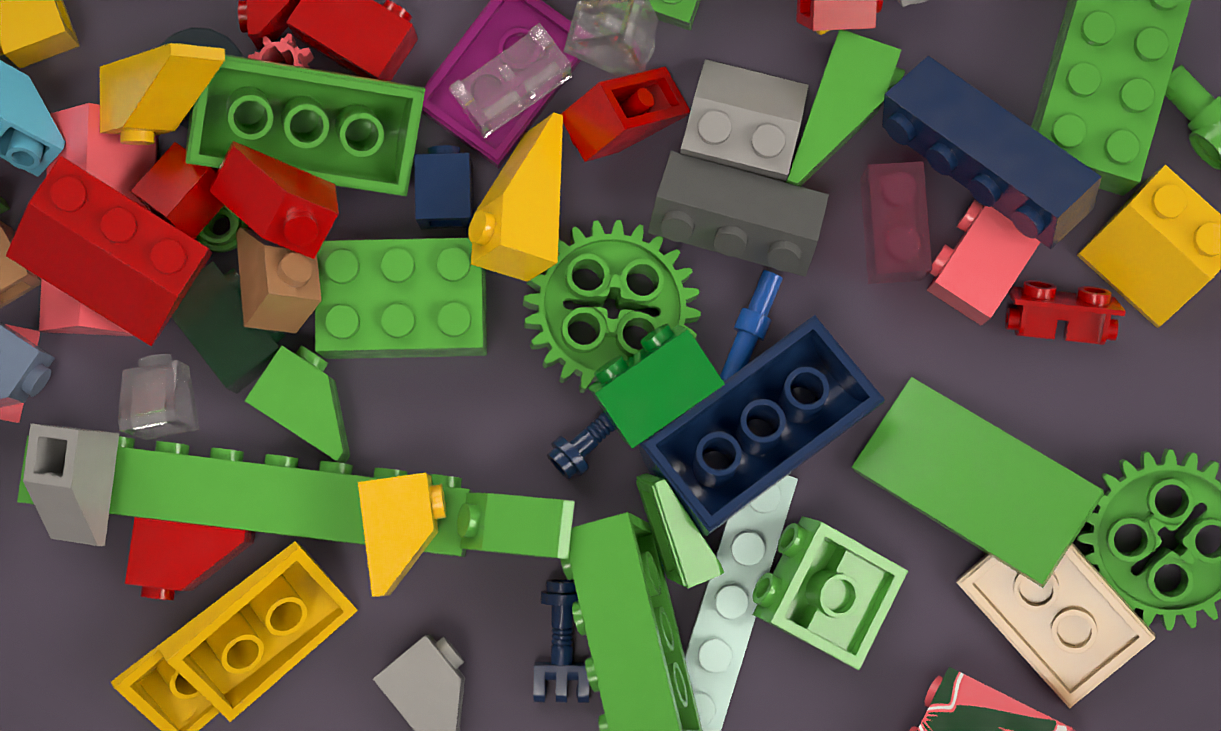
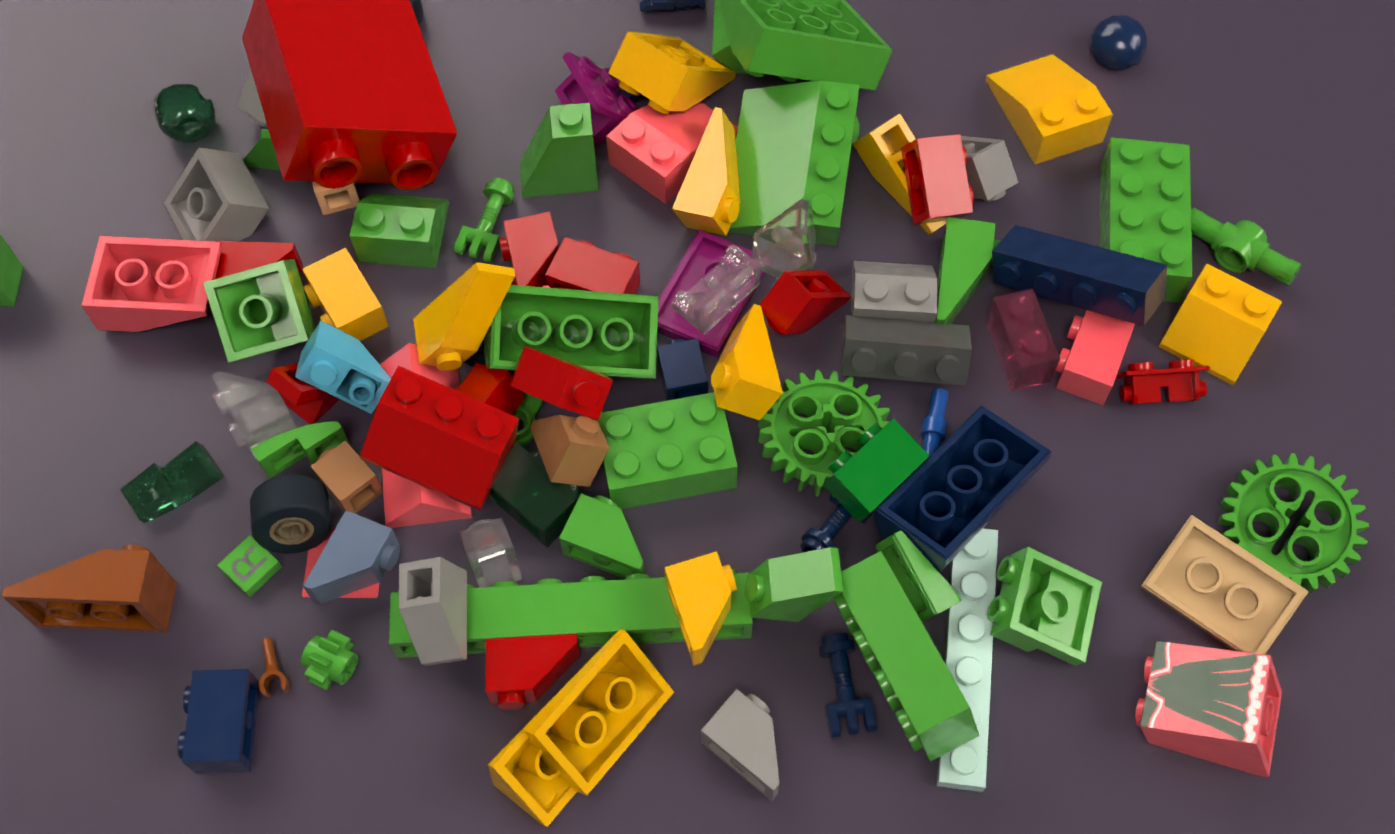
camera: 10 degrees left, 20 degrees down
(978, 481) = (1137, 503): bright green tile -> none

